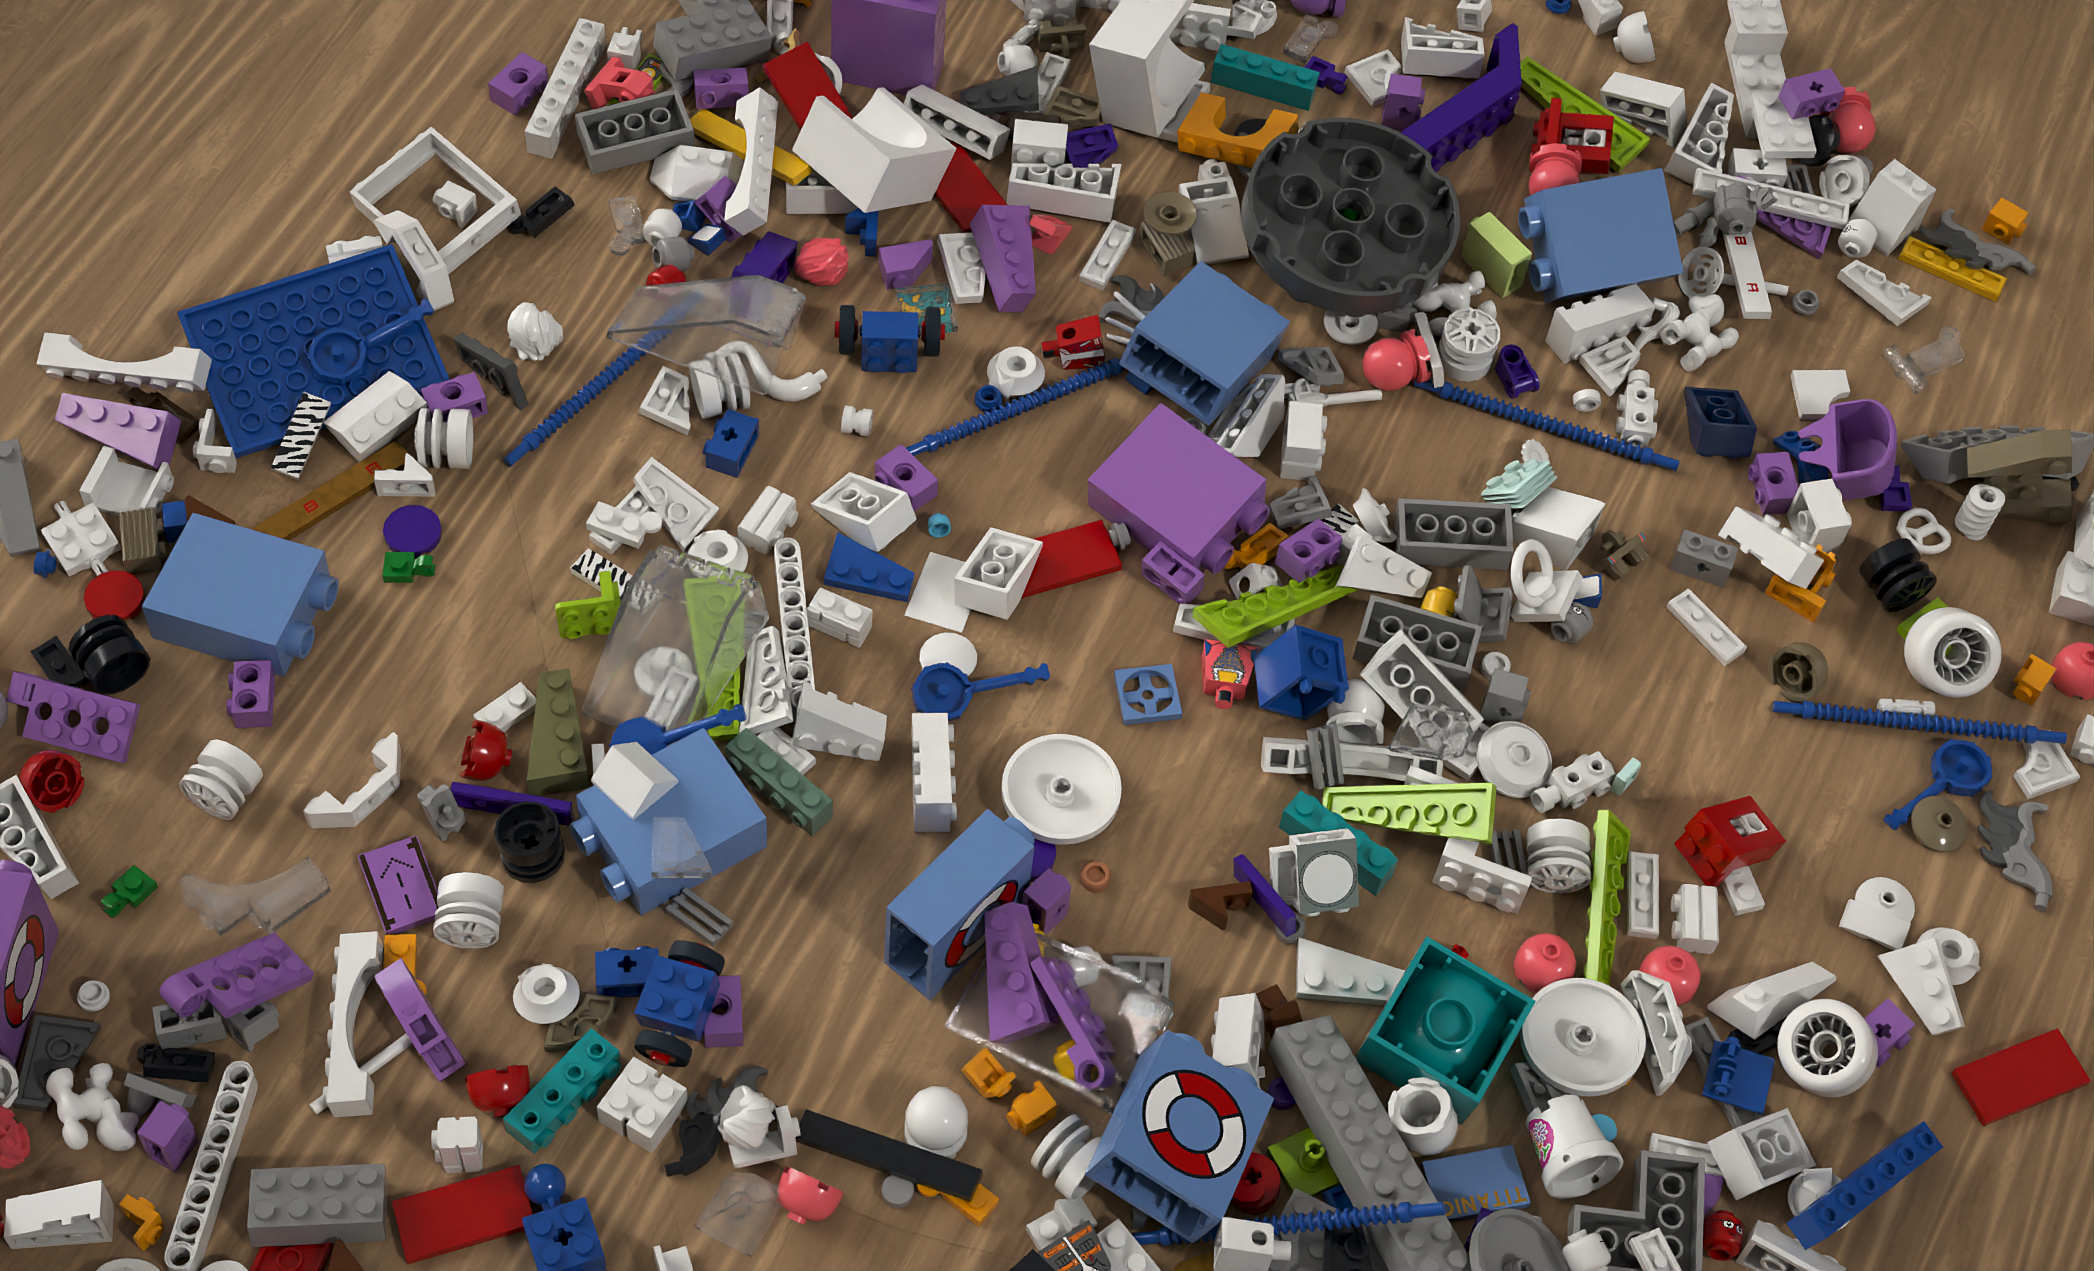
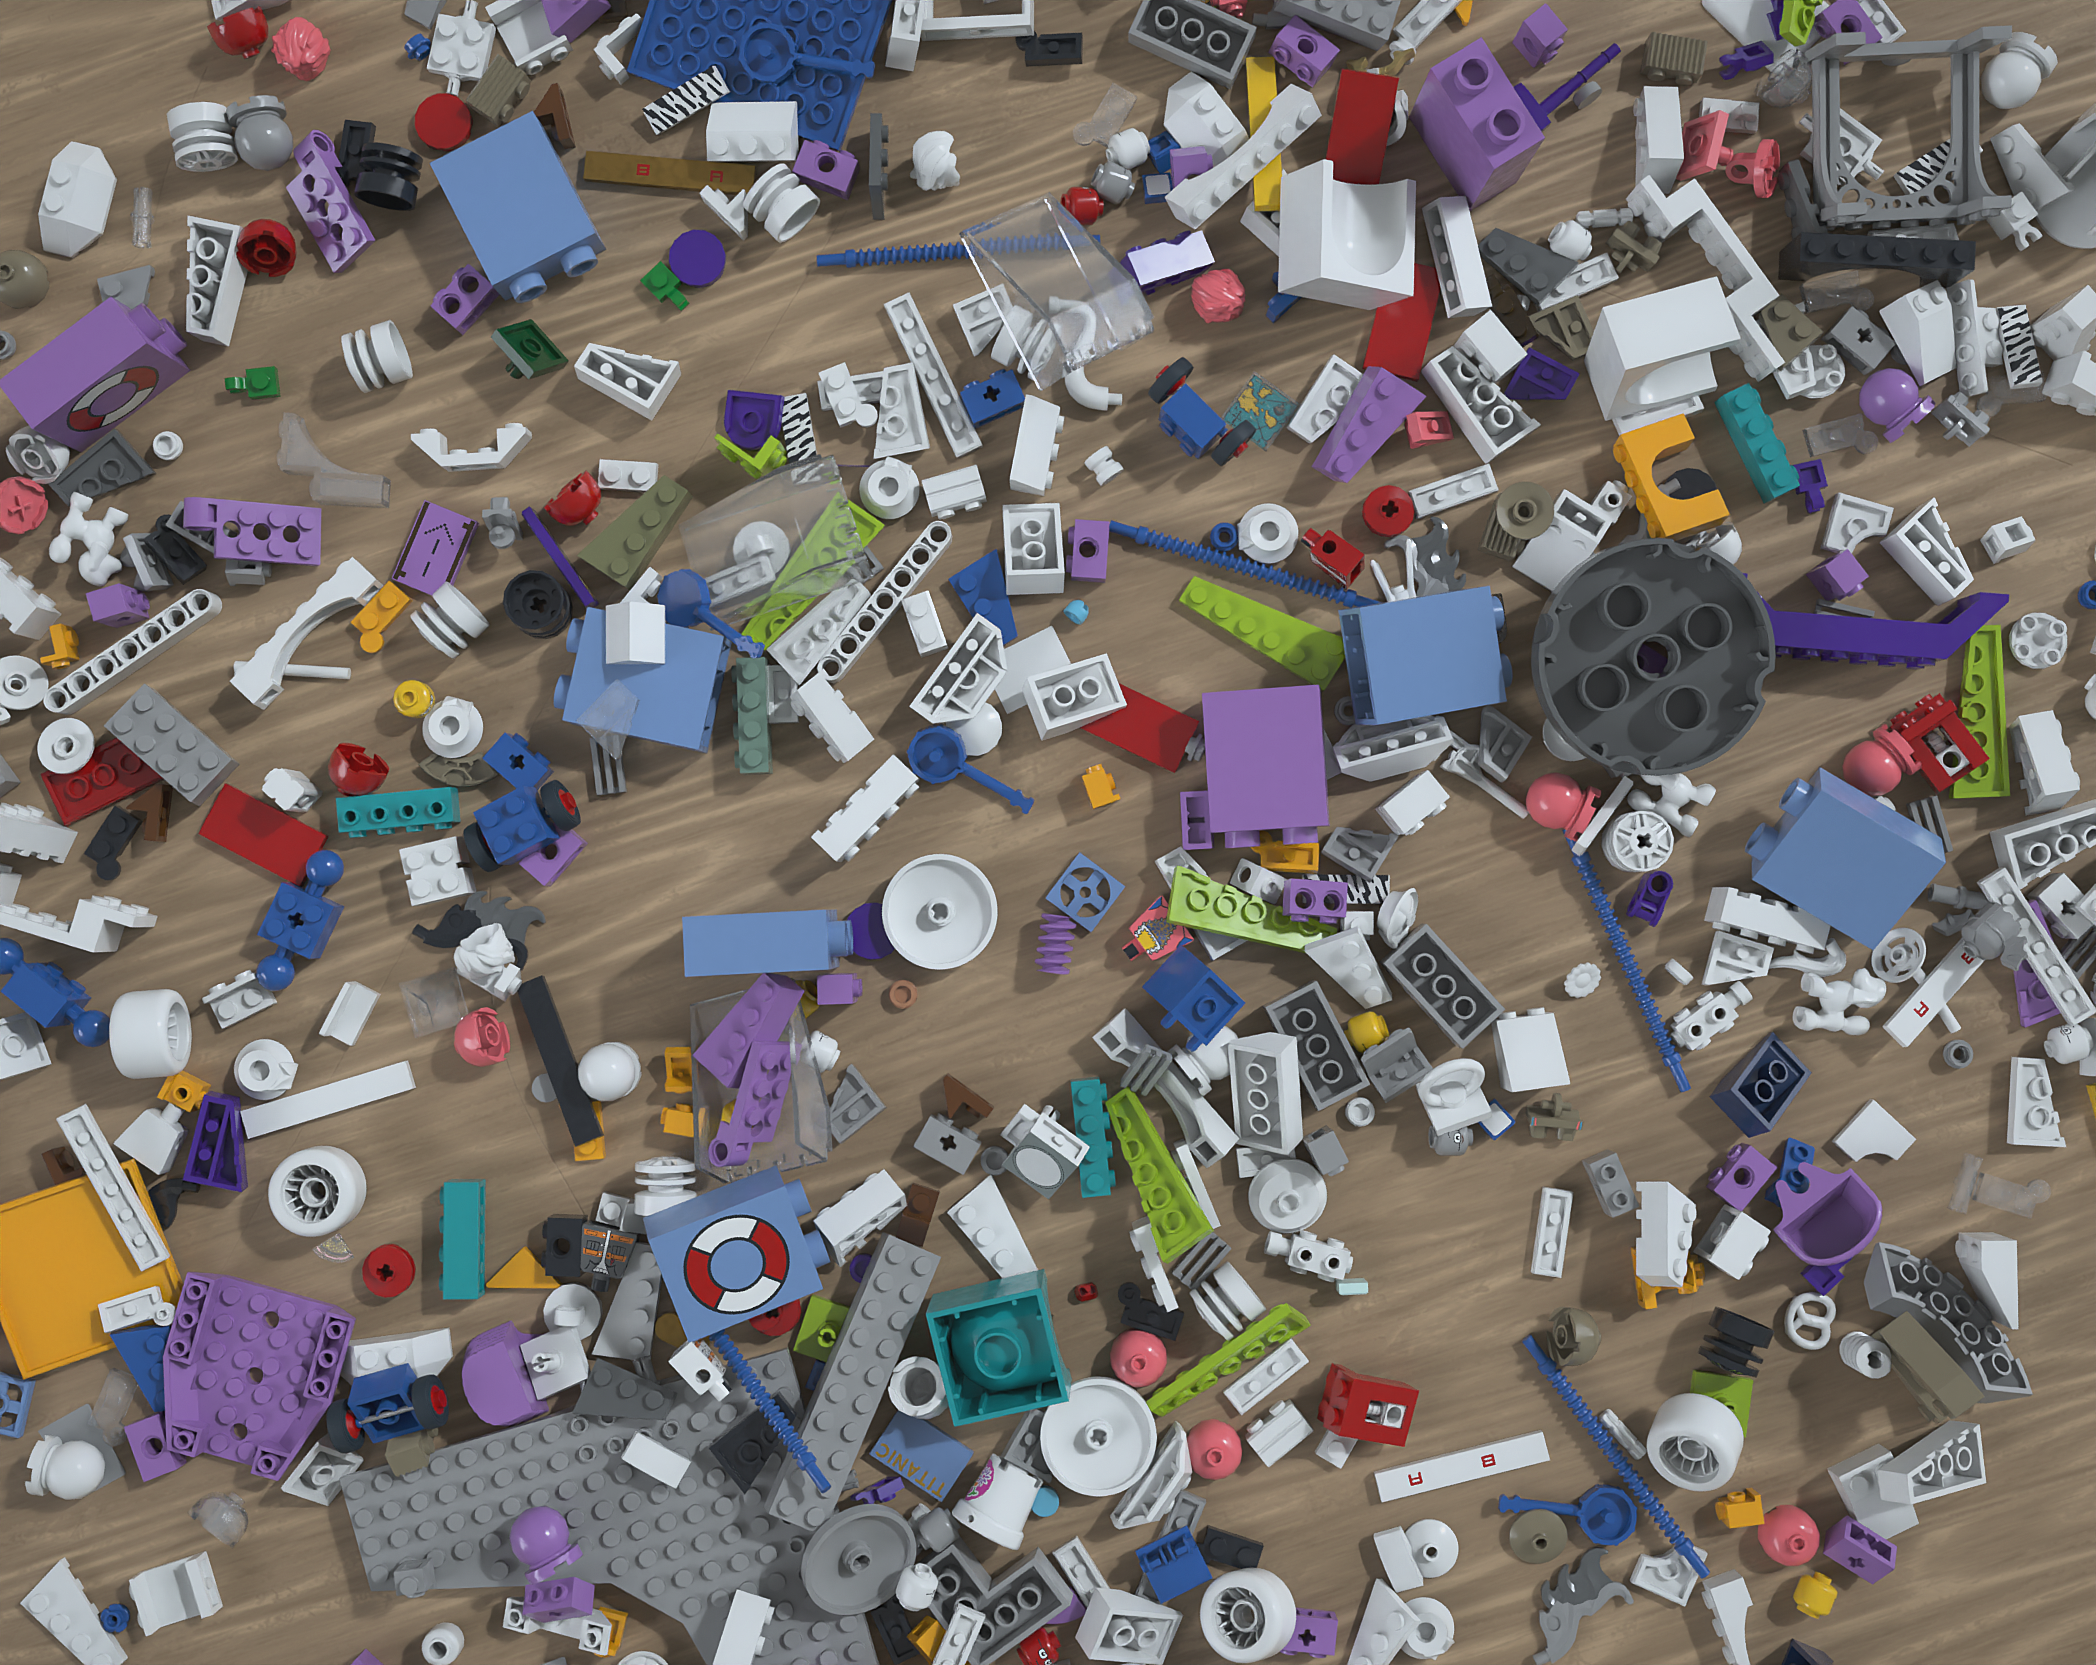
camera: 55 degrees right, 30 degrees up
(174, 519) = (533, 92): blue slope -> none
(343, 683) = (529, 350): none -> dark green tile
(420, 1020) = (345, 670): medium lavender slope -> none
(439, 641) = (628, 378): none -> white wedge
(494, 996) = (414, 699): none -> yellow head
(563, 585) = (752, 418): none -> dark purple tile
(697, 474) = (933, 375): none -> white tile
(795, 445) = (1036, 446): none -> white slope
(904, 263) = (1281, 355): medium lavender slope -> none
(905, 617) = (965, 675): none -> white wedge
(1076, 432) = (1282, 638): none -> lime wing
(1080, 295) = (1399, 503): none -> red piece
(1081, 616) = (1099, 786): none -> light orange brick
(1164, 740) = (1055, 944): none -> medium lavender piece
(1244, 943) = (953, 1157): none -> light grey brick
(1265, 895) = (995, 1125): dark purple tile -> none
(1433, 733) = (1229, 1135): clear slope -> none
(1496, 254) = (1750, 784): yellowish green brick -> none
(1516, 927) = (1148, 1314): none -> black hinge
(1519, 483) = (1535, 995): light aqua brick -> none
(1553, 1208) = (938, 1529): none -> light grey head
(1559, 49) = (2038, 640): none -> white dish
(1767, 1001) = (1257, 1532): white wedge -> none
(1836, 828) = (1461, 1466): none -> white tile
(1987, 397) = (1992, 1271): none -> white slope

